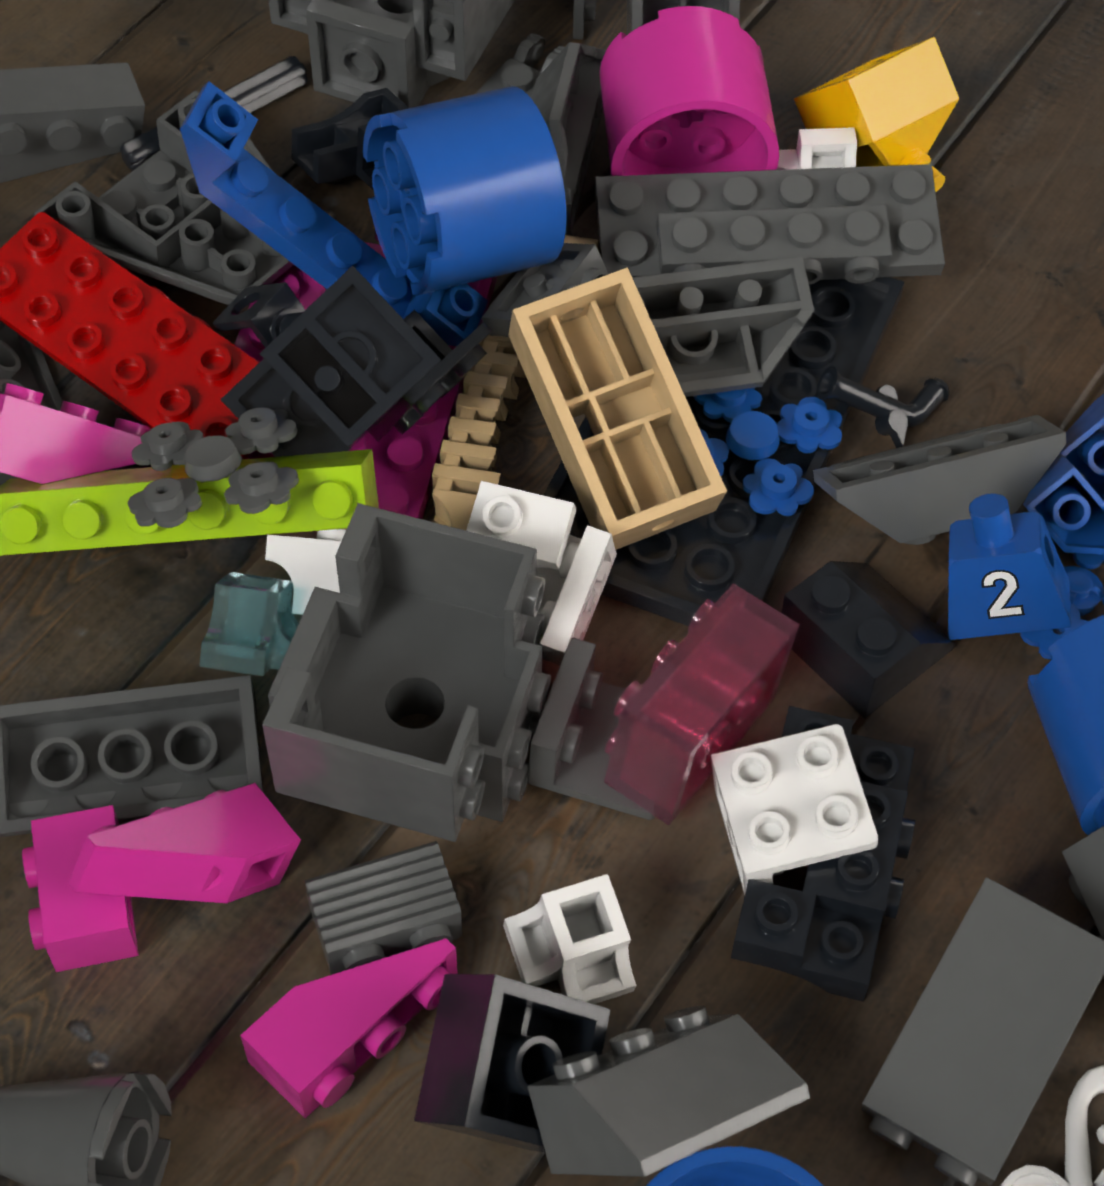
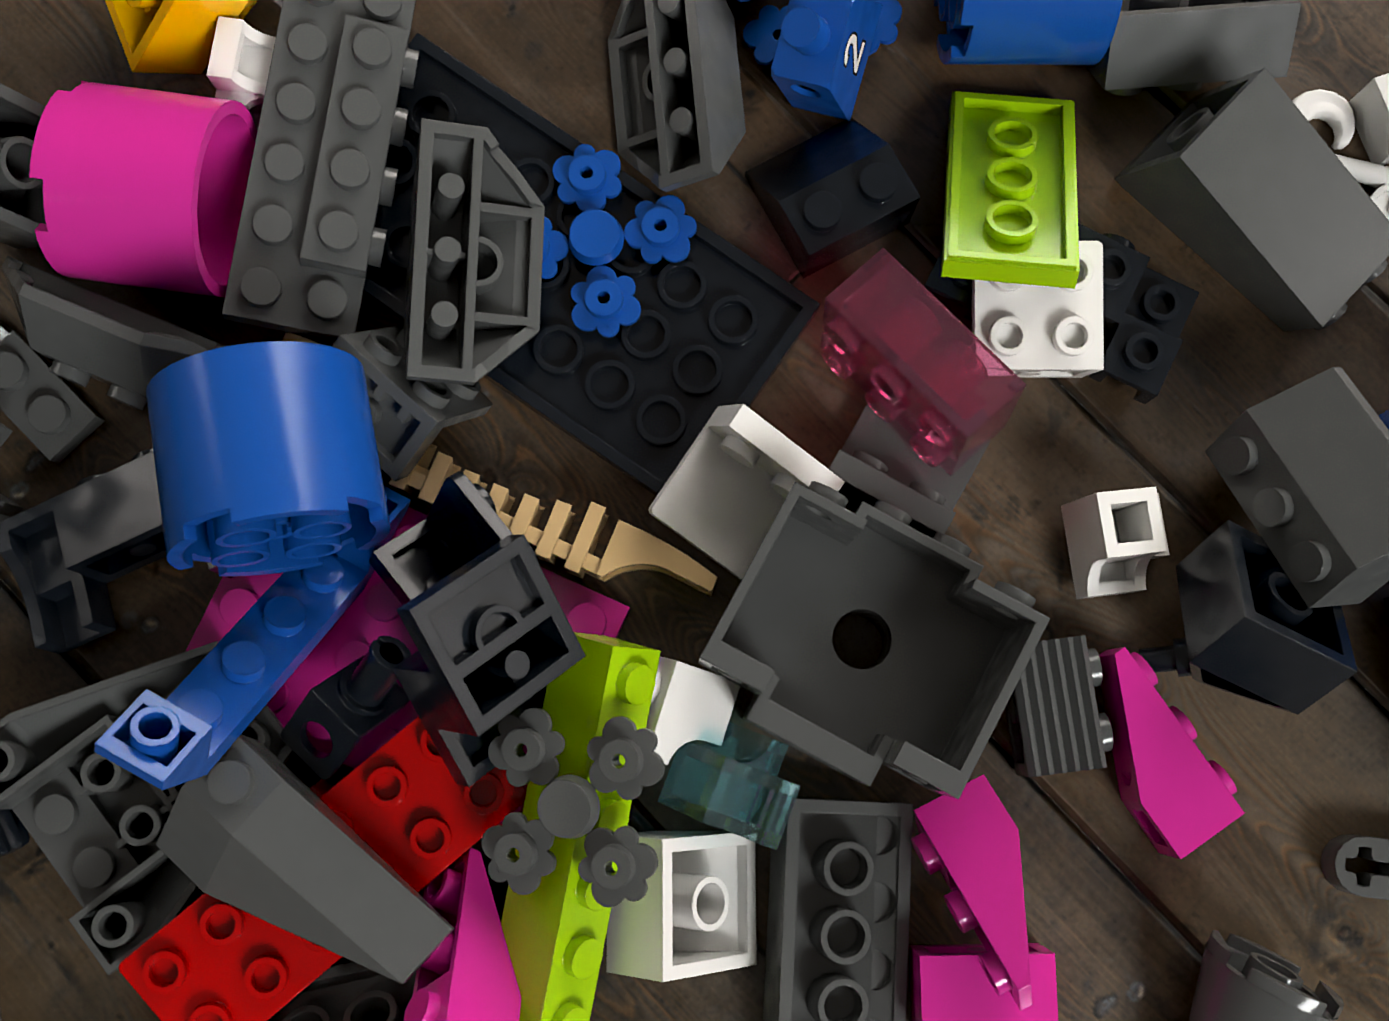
camera: 80 degrees left, 25 degrees up
(140, 619) = (694, 912): none -> white slope
(142, 296) = (287, 858): none -> dark grey wedge
(524, 520) = (711, 503): white brick -> none
(603, 359) = (521, 358): tan brick -> none
(891, 415) = (574, 100): black piece -> none
(913, 759) = (1011, 190): none -> lime tile

